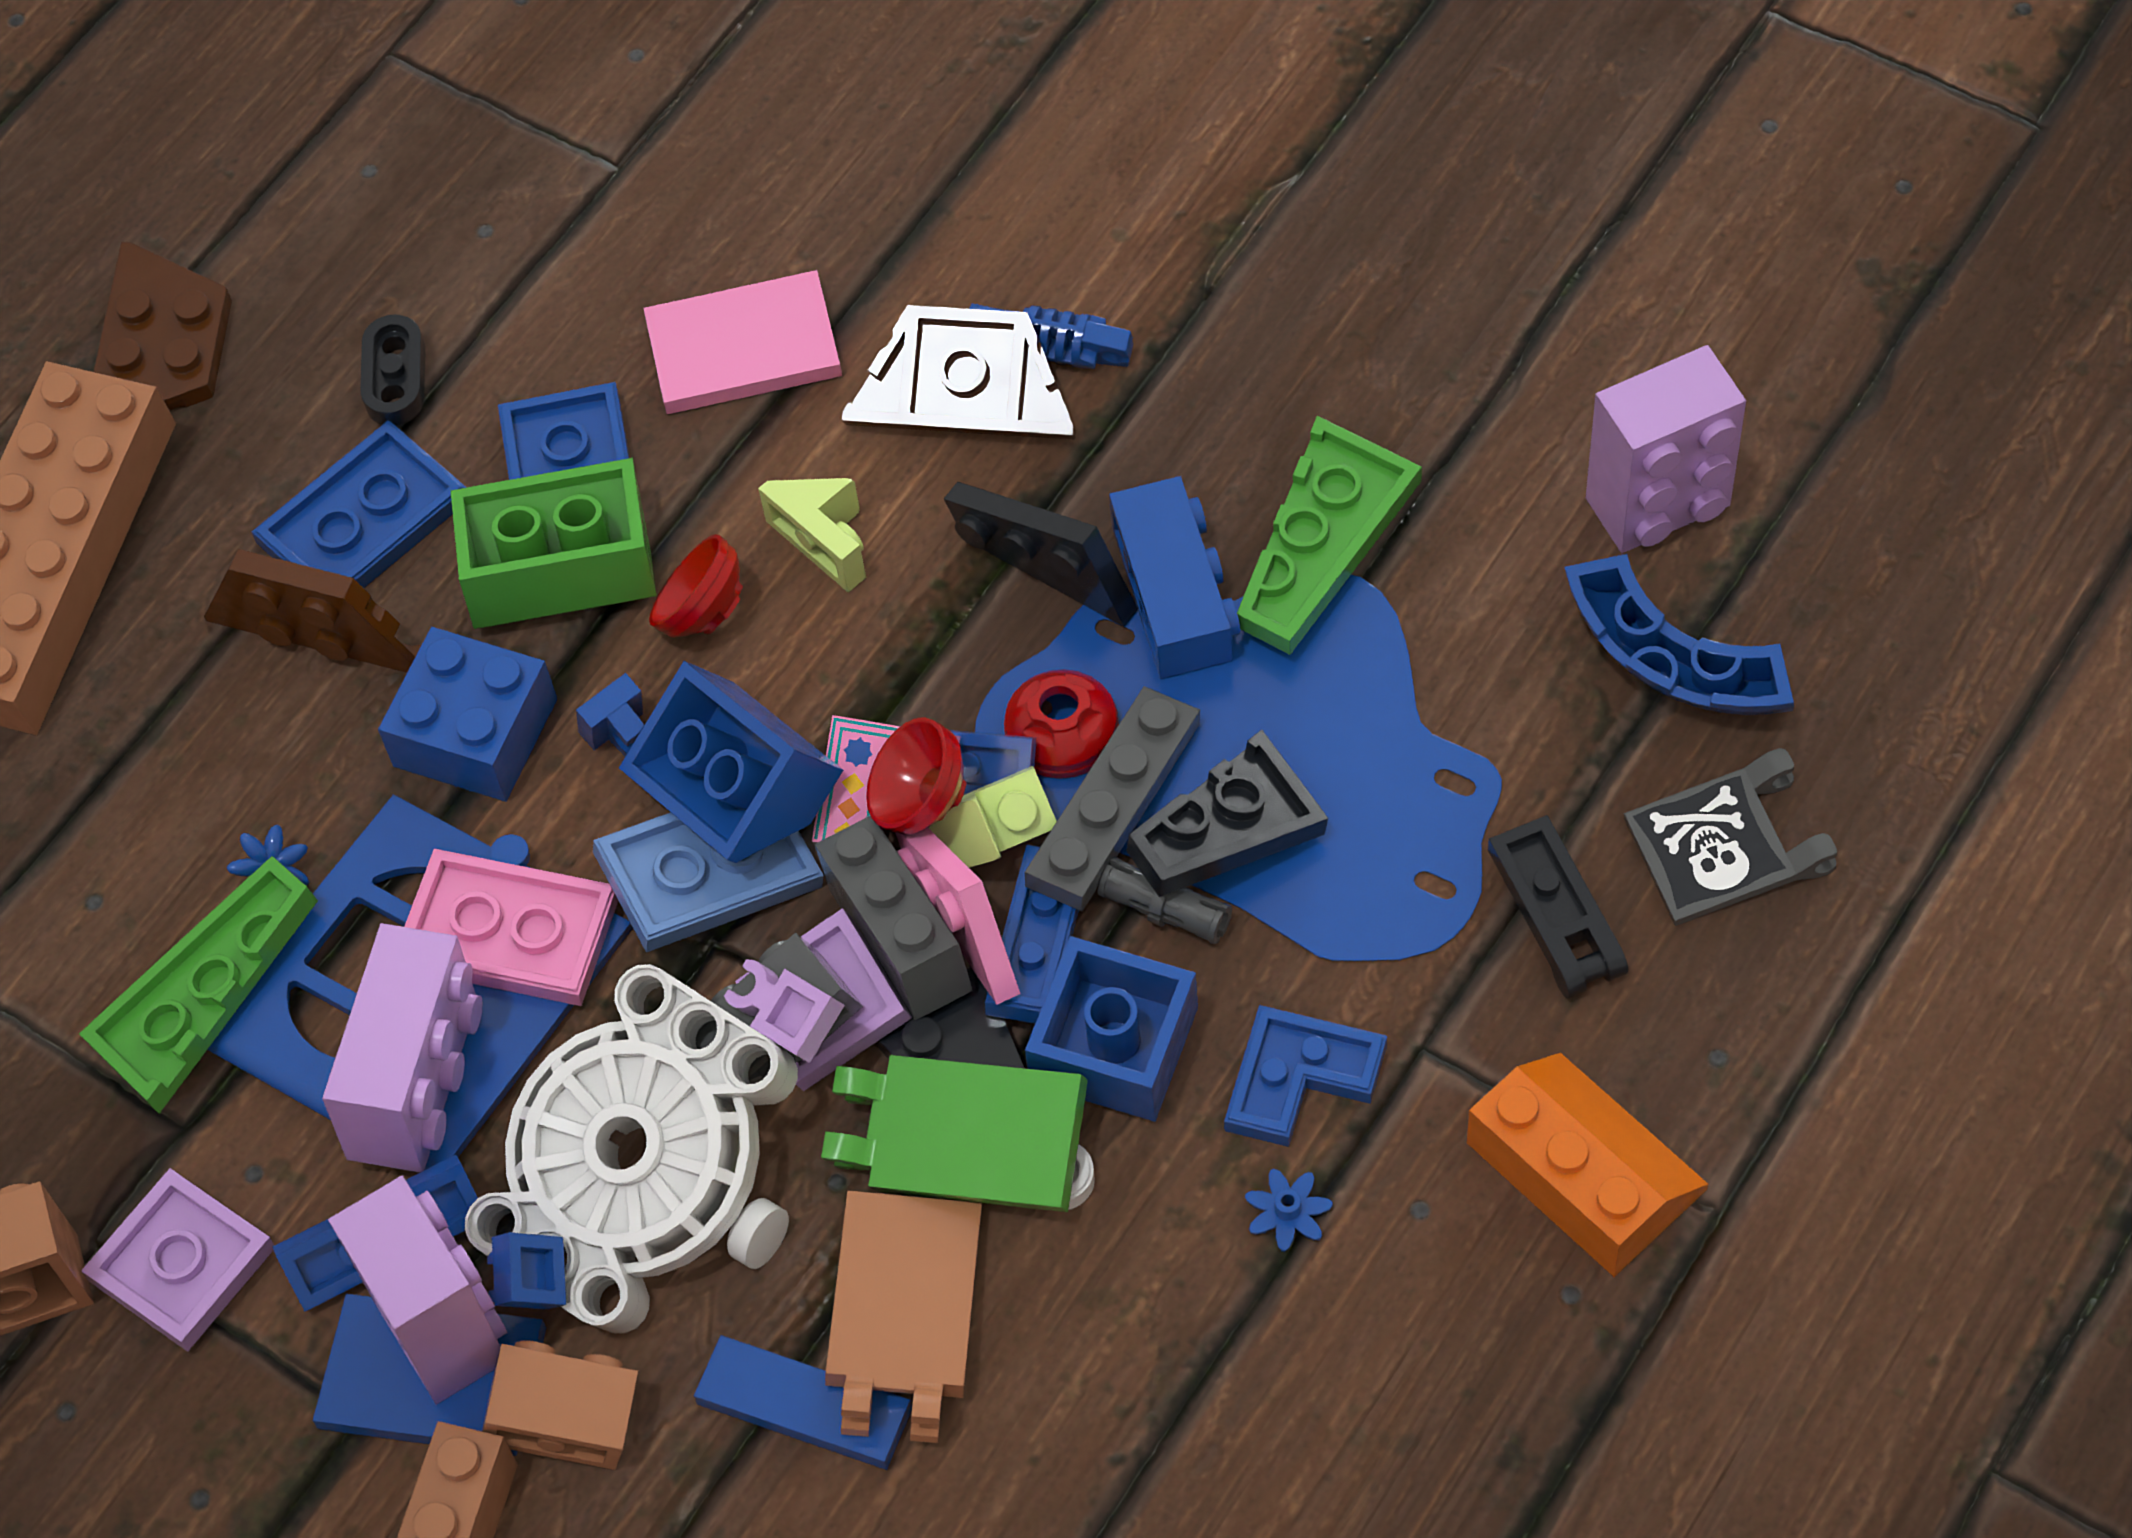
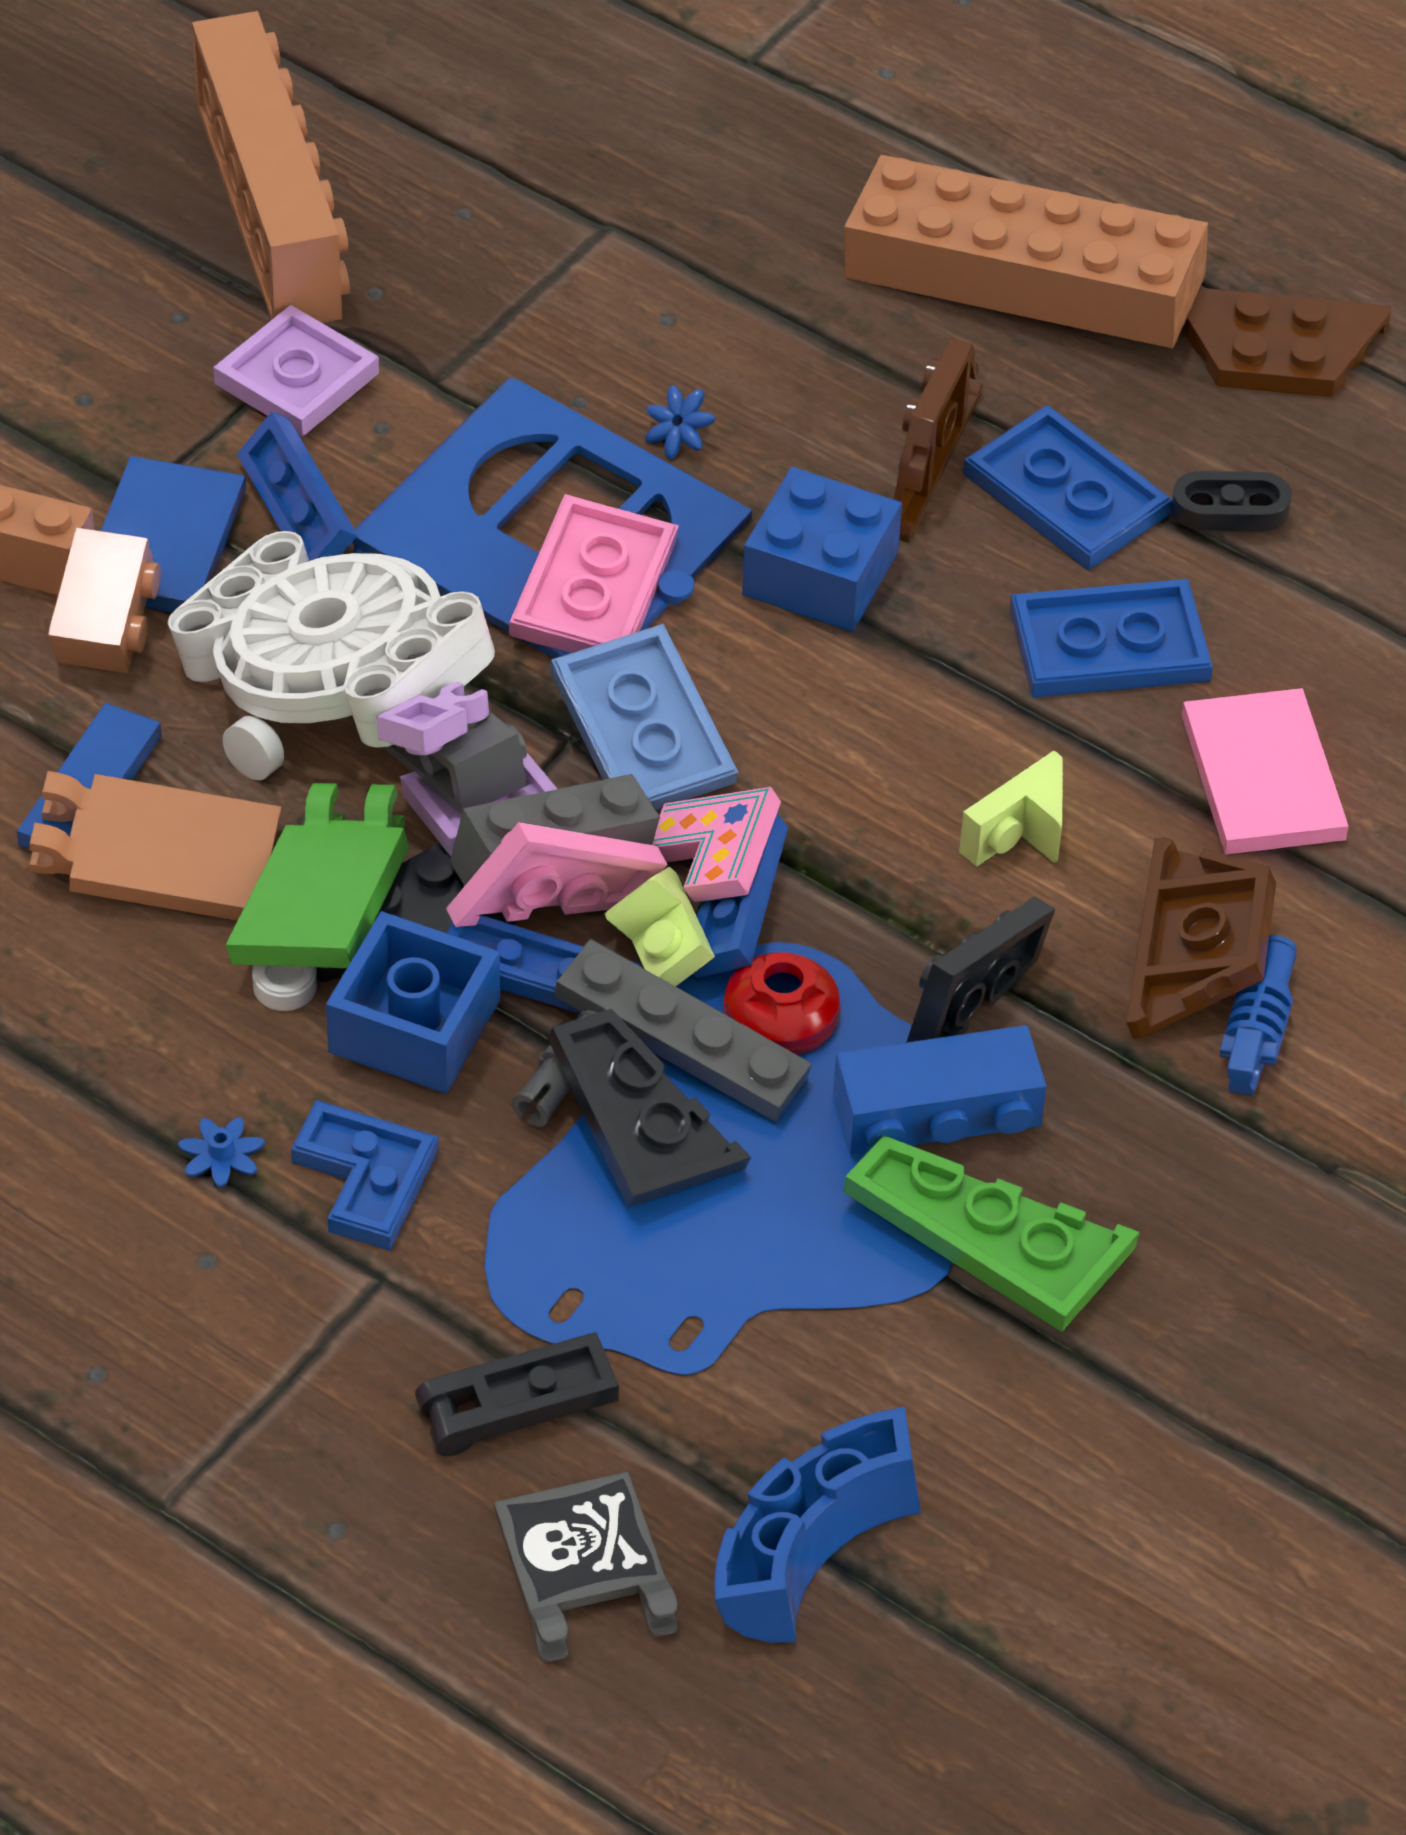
camera: 85 degrees right, 10 degrees down
(189, 995) = (556, 368): bright green wing -> none
(402, 1048) = (448, 476): lavender brick -> none
(422, 1286) = (195, 469): lavender brick -> none
(528, 1271) = (212, 555): blue tile -> none
(552, 543) = (1004, 601): bright green slope -> none
(612, 715) = (810, 657): blue tile -> none
(699, 591) = (943, 717): red piece -> none
(728, 765) = (737, 724): blue slope -> none
(915, 777) = (682, 842): red piece -> none
(1582, 1159) = (227, 1380): orange slope -> none
(1664, 449) = (1037, 1499): lavender brick -> none

